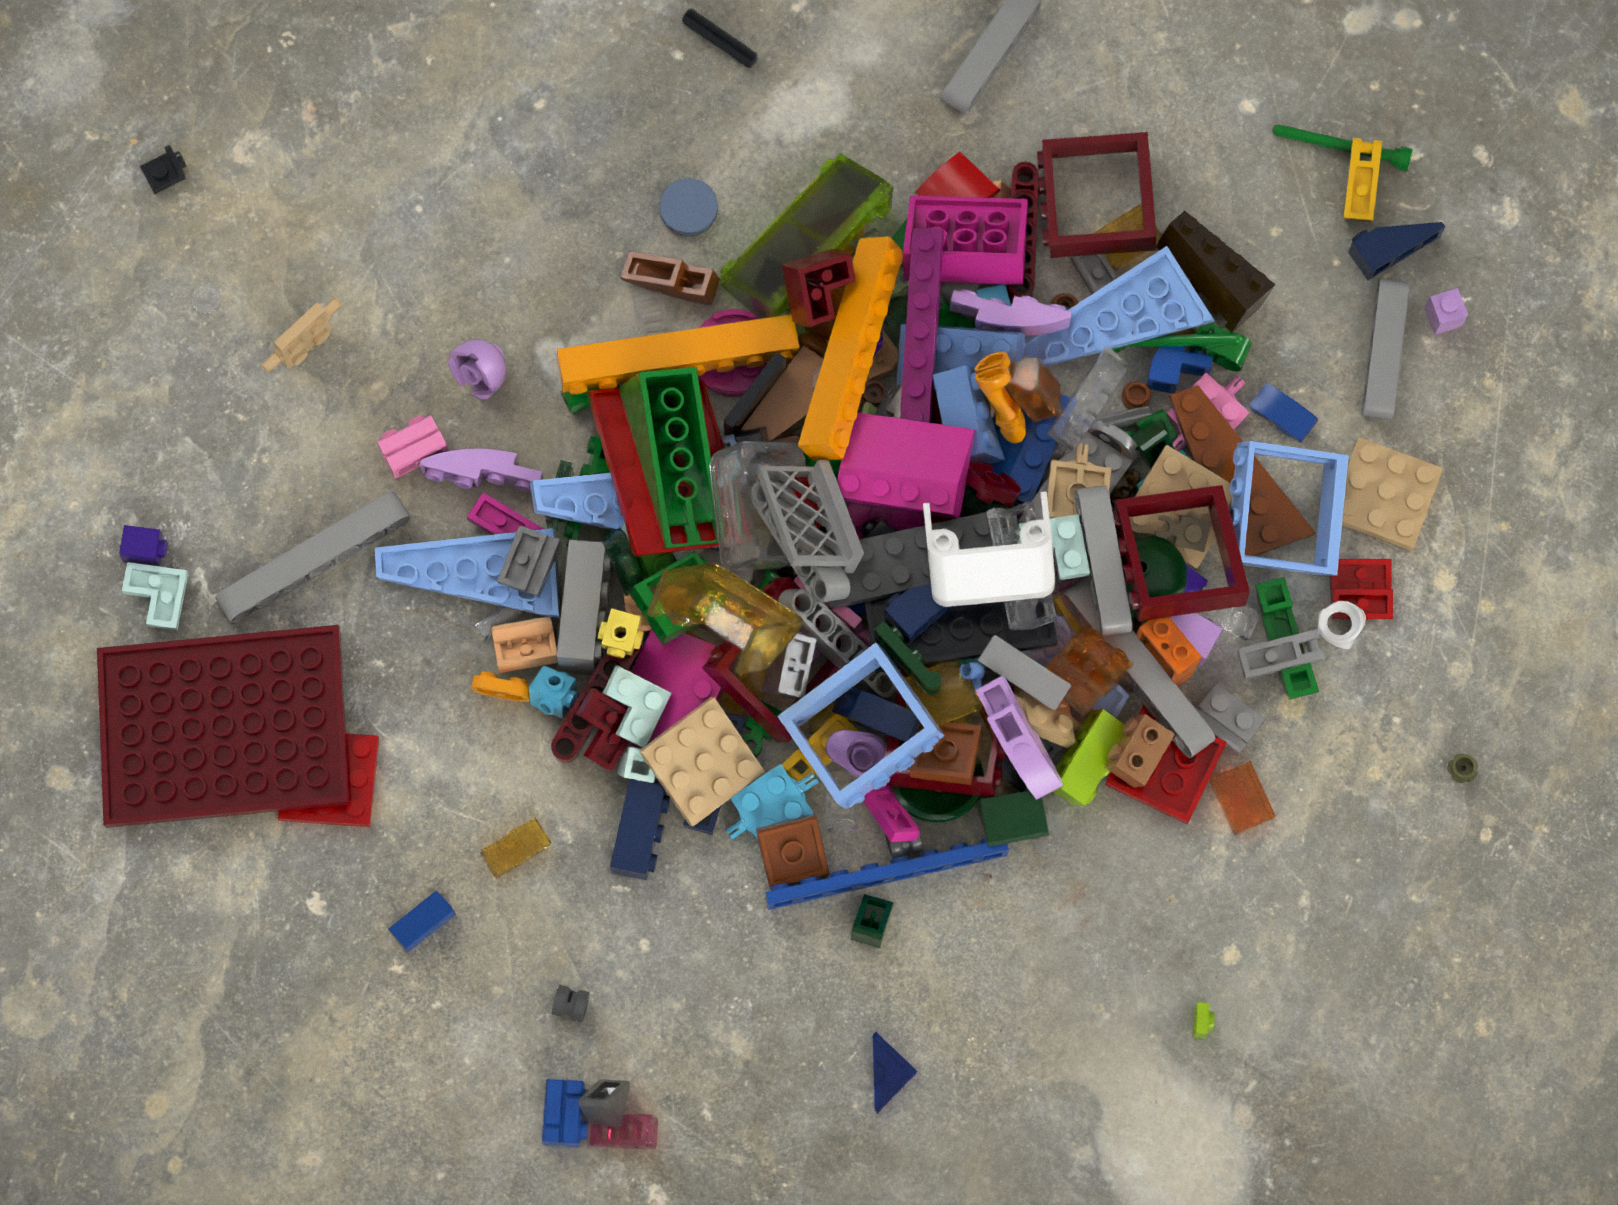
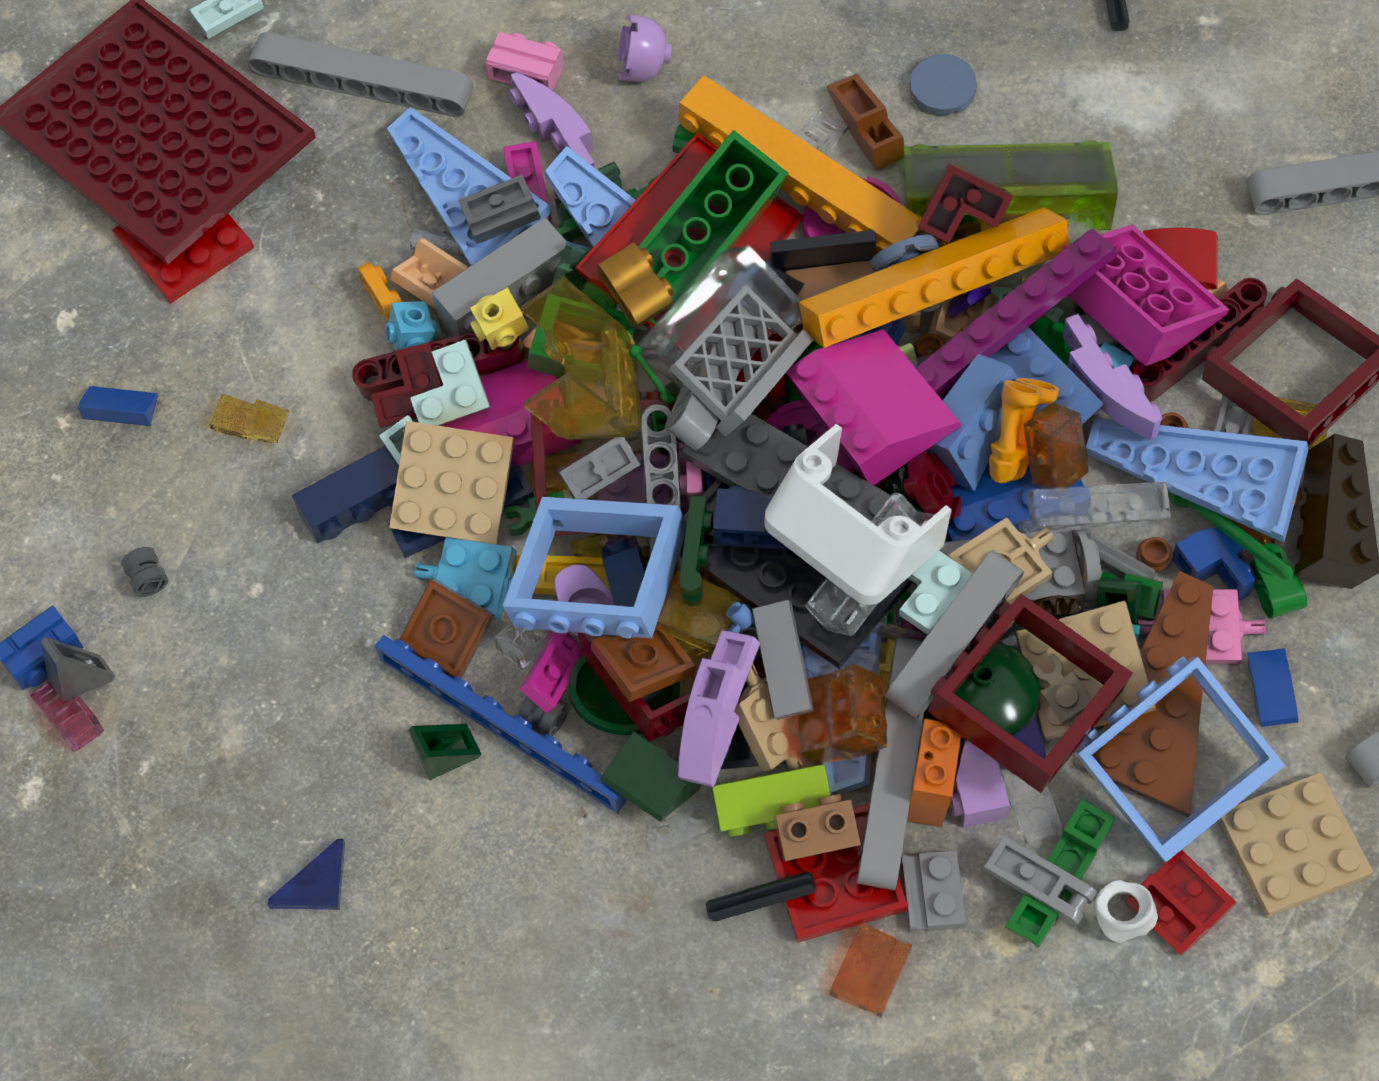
camera: 55 degrees right, 10 degrees down
(688, 530) = (635, 284): none -> pearl gold brick
(736, 573) = (635, 352): none -> green hinge
(814, 351) = (903, 251): none -> sand blue tile
(1144, 819) = (761, 896): none -> black axle

